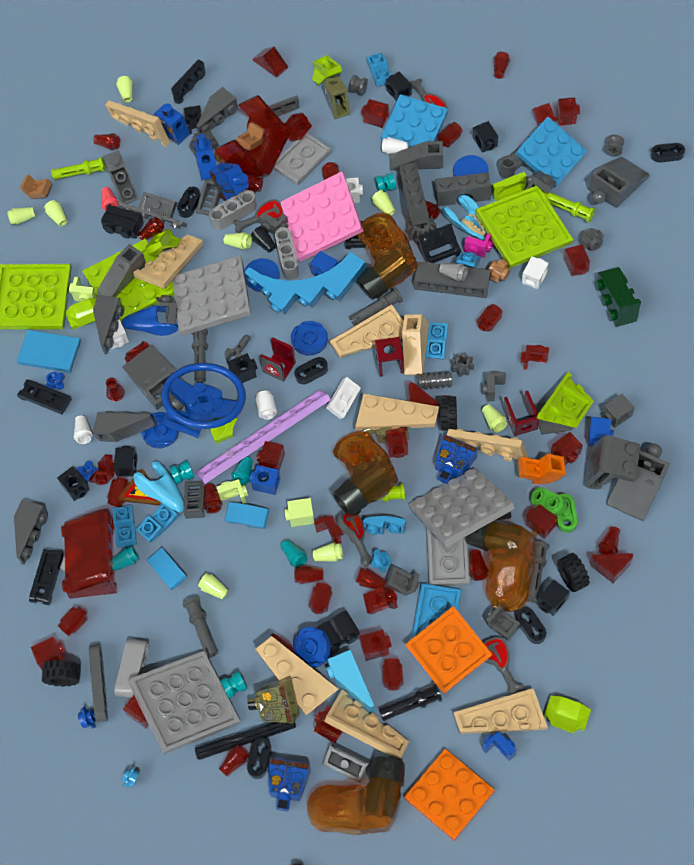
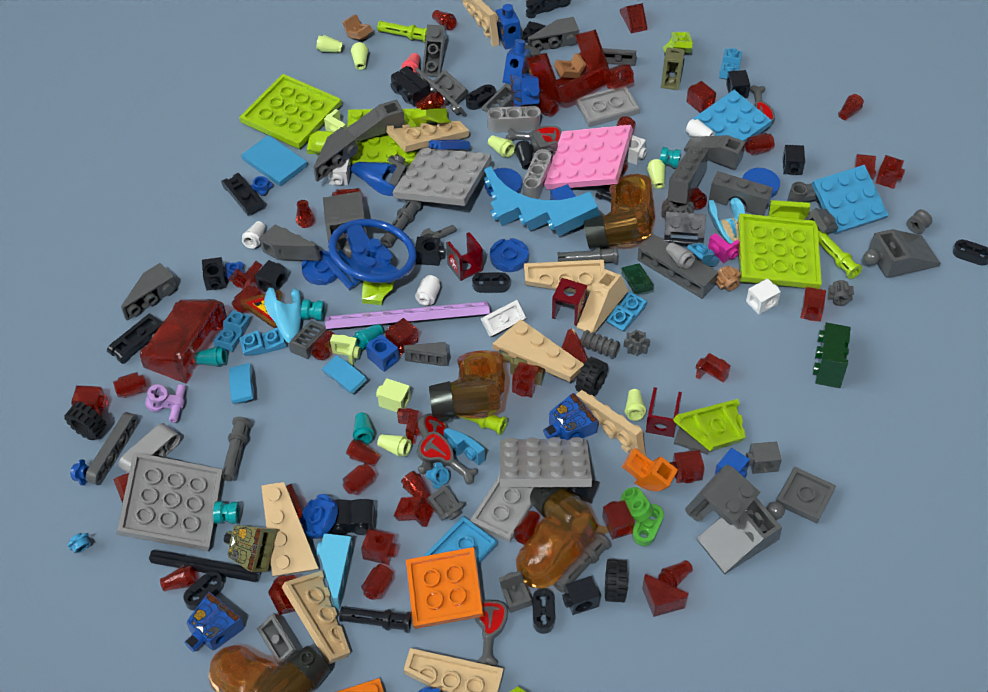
camera: 25 degrees right, 10 degrees down
(112, 617) = (162, 400): none -> lavender piece
(196, 261) = (449, 144): none -> blue tile
(212, 586) = (270, 418): yellowish green cone -> none
(308, 458) = (427, 353): none -> dark grey slope
(358, 85) = (701, 67): dark grey wheel -> none
(367, 539) = (437, 449): none -> dark grey piece
(427, 307) = (637, 278): none -> clear green plate
(489, 318) = (691, 315): clear red brick -> none
(493, 378) = (654, 370): dark grey bracket -> none
(665, 425) = (806, 494): none -> dark grey plate

